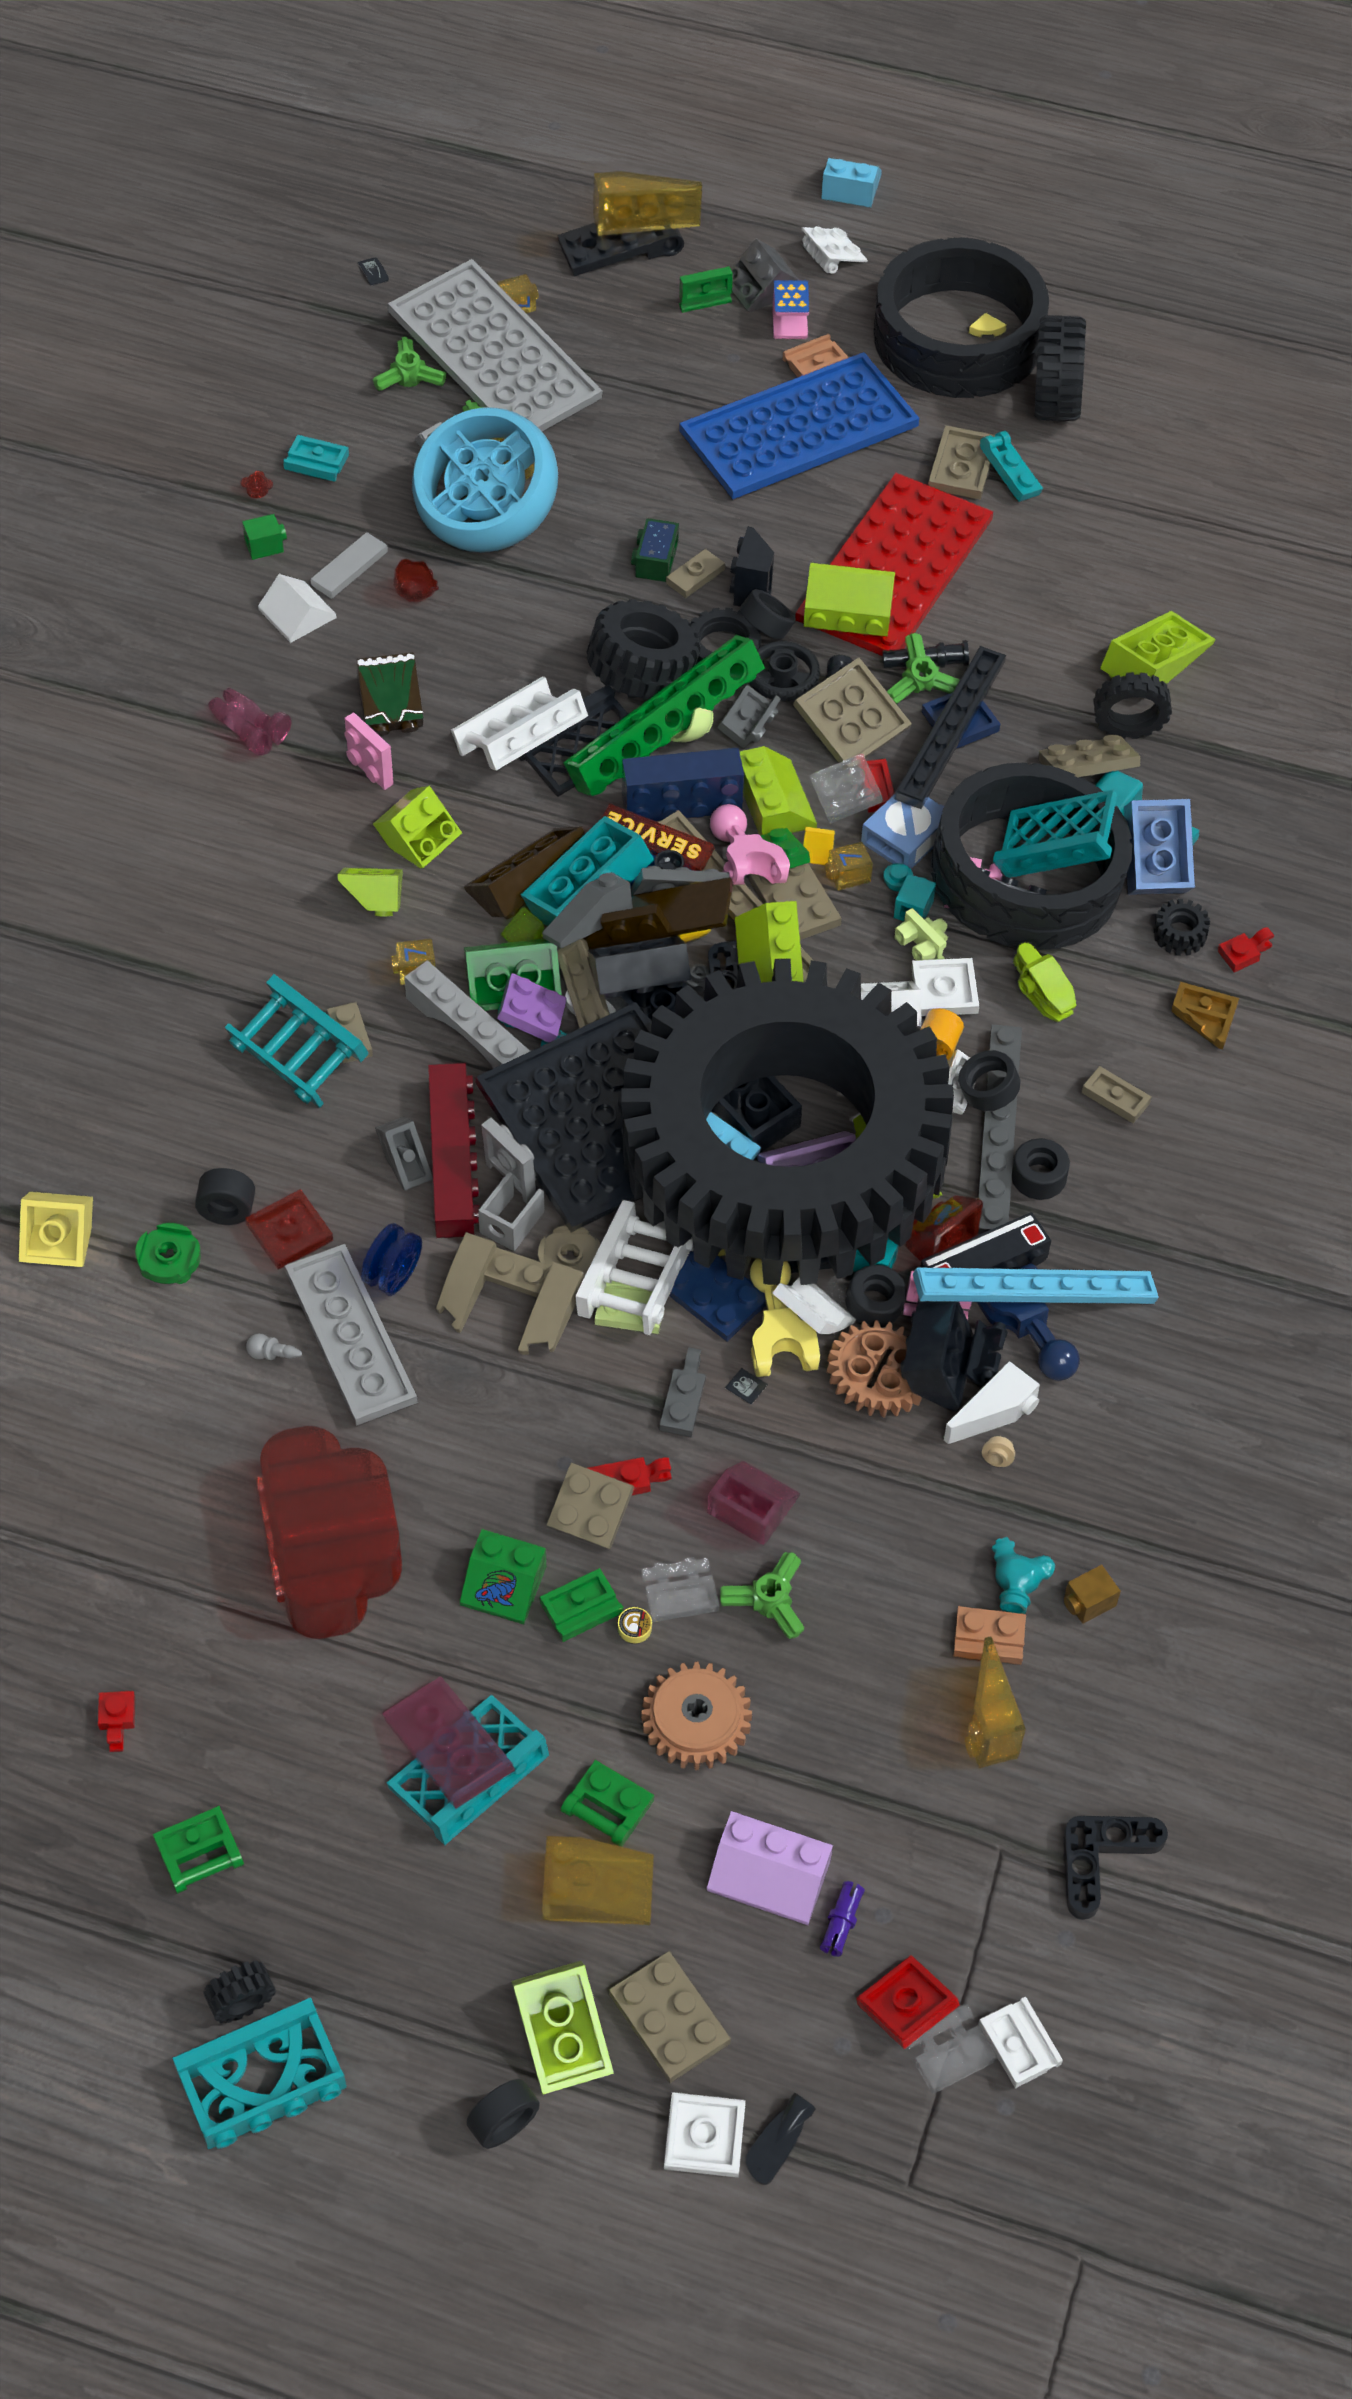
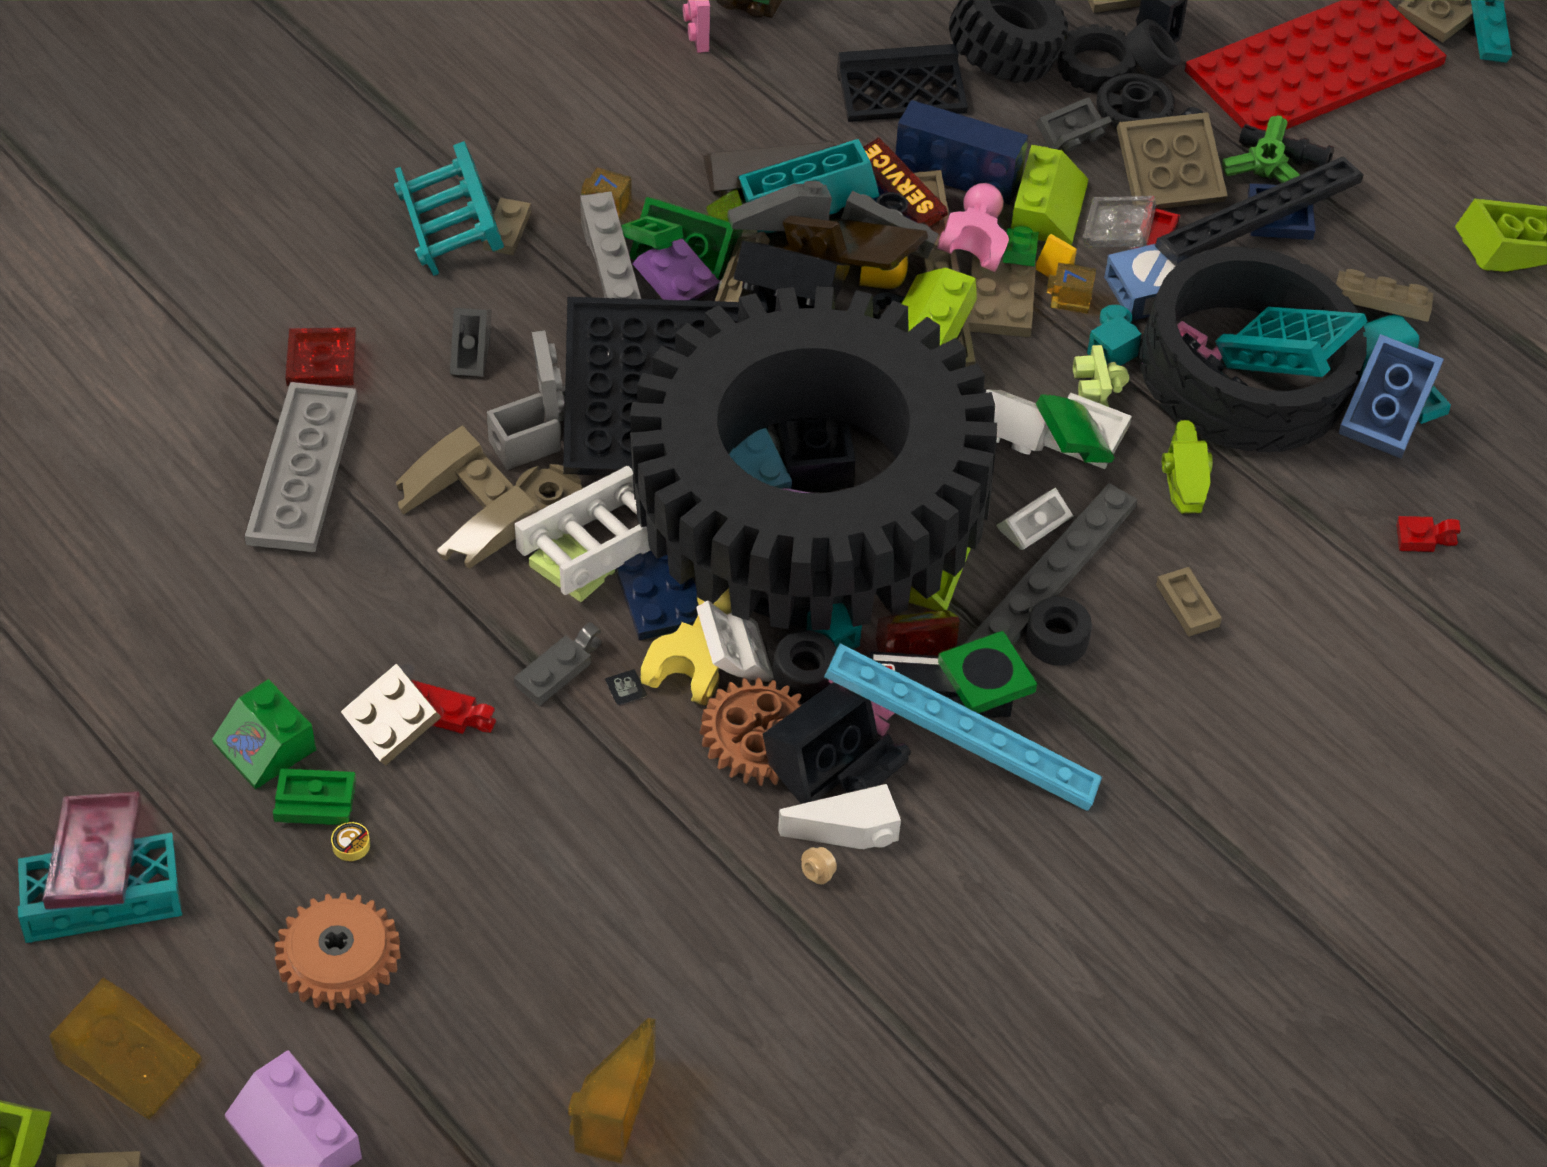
camera: 30 degrees right, 5 degrees down
(55, 1228) = (126, 263): light yellow slope -> none
(172, 1269) = (207, 342): green plate -> none
(225, 1196) = (283, 301): black tyre -> none
(261, 1346) = (224, 444): light grey bar -> none
(327, 1529) = (136, 614): clear red brick -> none
(374, 888) = (618, 121): lime slope -> none
(391, 1259) = (380, 417): clear blue wheel -> none
(418, 826) = (698, 89): lime slope -> none
(451, 1150) = (510, 358): dark red brick -> none
(496, 982) = (652, 232): none -> green plate
(519, 723) = (851, 42): white fence -> none
(612, 1794) = (208, 980): green plate -> none
(682, 1597) = (413, 839): clear plate -> none
(699, 726) = (1012, 108): yellowish green helmet -> none
(736, 654) = (1093, 61): green brick -> none
(750, 1501) = (542, 784): clear pink slope -> none
(772, 1607) = (493, 879): bright green bush -> none
(849, 599) = (1236, 62): lime slope -> none
(945, 993) = (1074, 428): none -> green slope
(946, 1027) = (1045, 468): light orange piece -> none
(976, 1624) = (684, 1031): nougat plate -> none
(983, 1063) = (1065, 541): black tyre -> none
(1018, 1575) = (749, 989): teal animal -> none
(1021, 1232) = (987, 672): none -> green tile
(1057, 1357) = (941, 807): dark blue piece -> none
(1091, 1594) = (807, 1045): pearl gold brick -> none
(1128, 687) = (1465, 242): black tyre -> none
(1184, 914) = (1367, 497): black tyre -> none
(1205, 1011) = (1339, 570): pearl gold wing -> none

